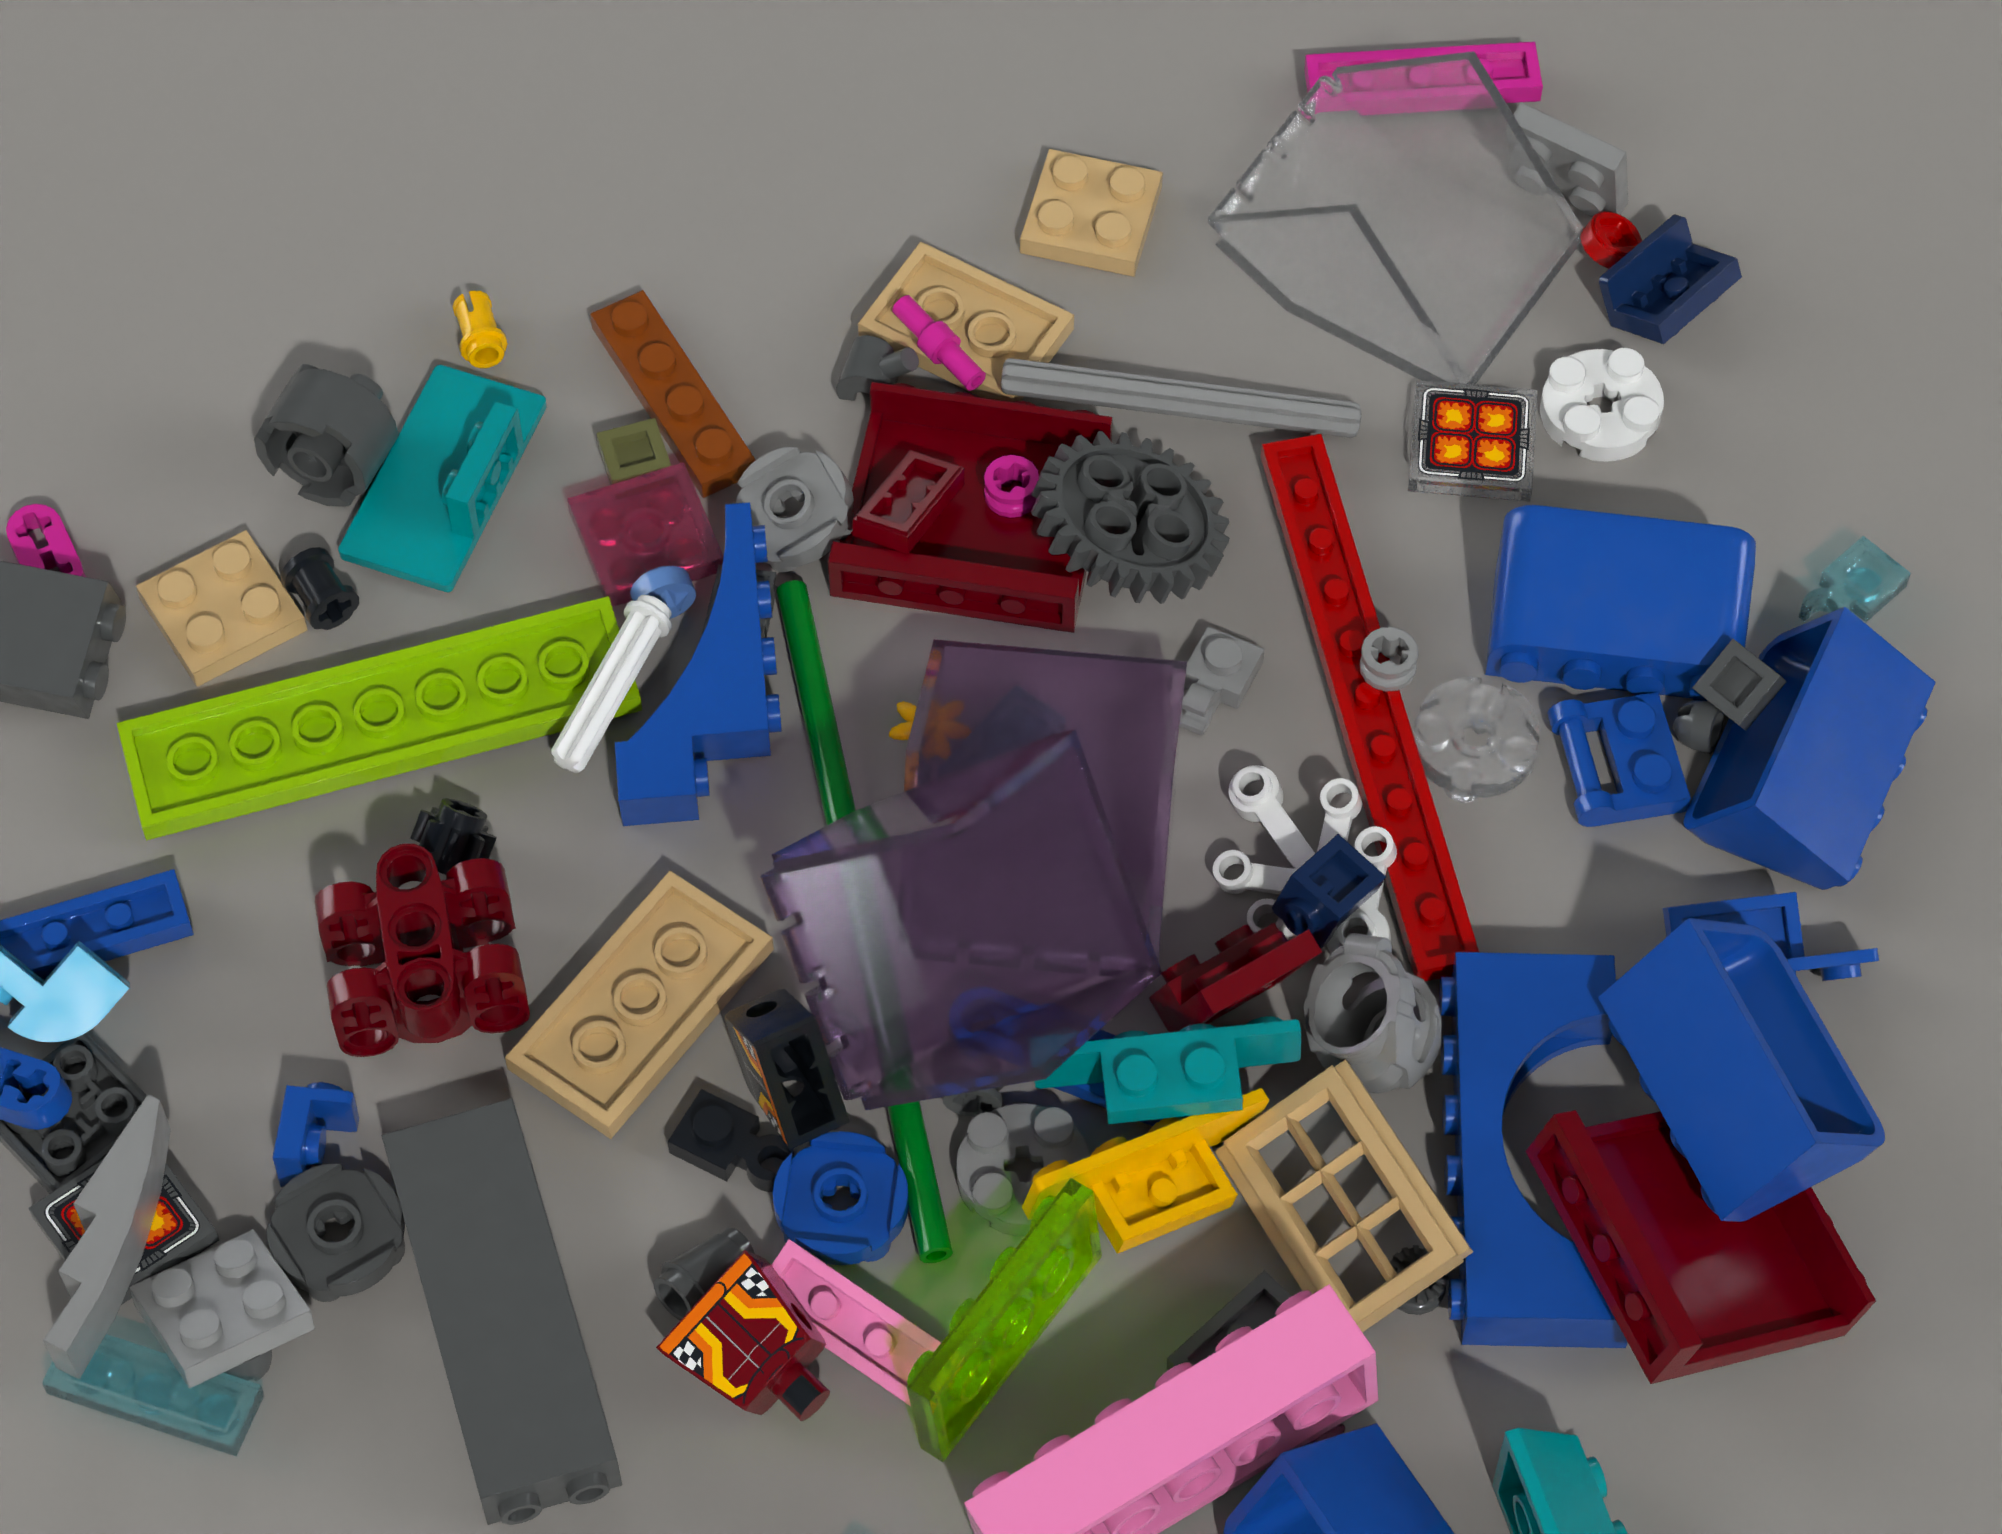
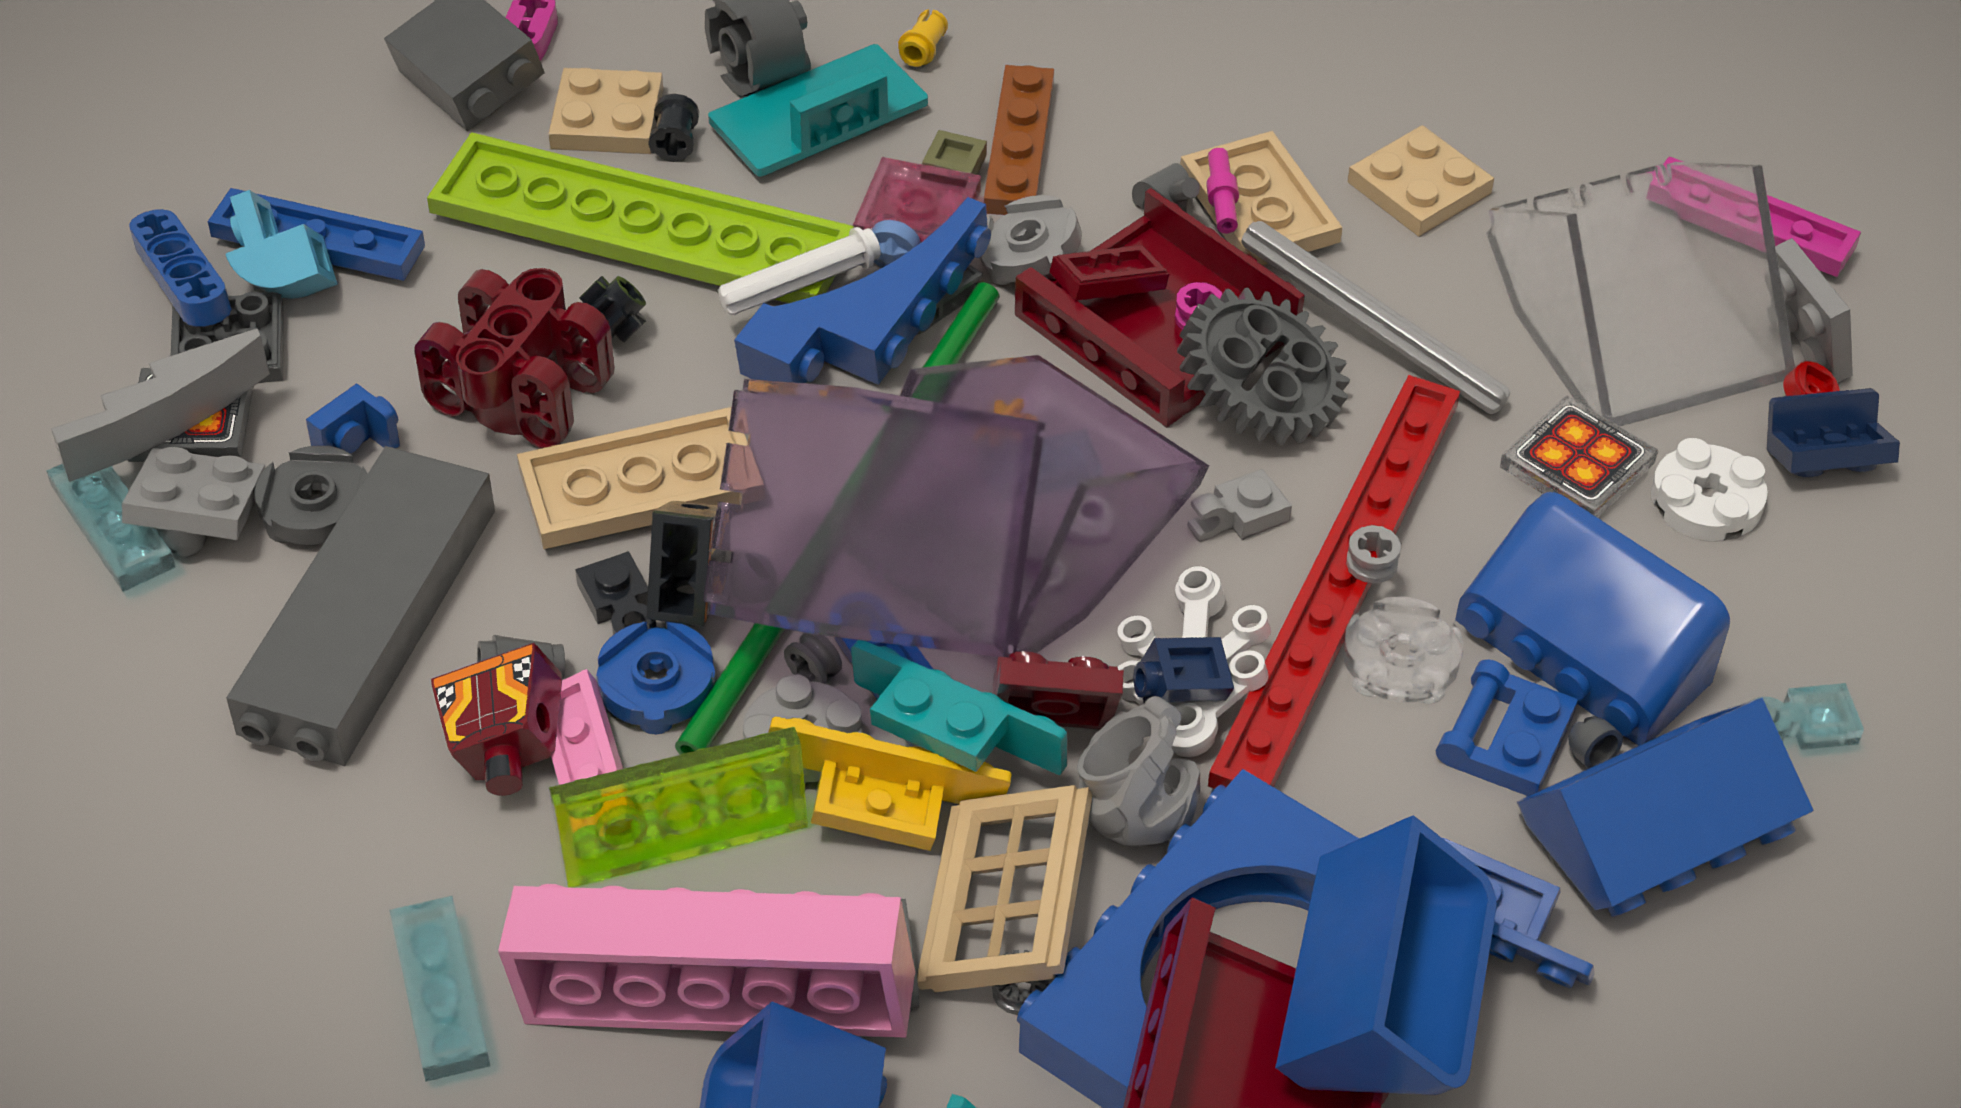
camera: 35 degrees right, 10 degrees down
(1739, 684) = (1636, 716): dark grey plate -> none

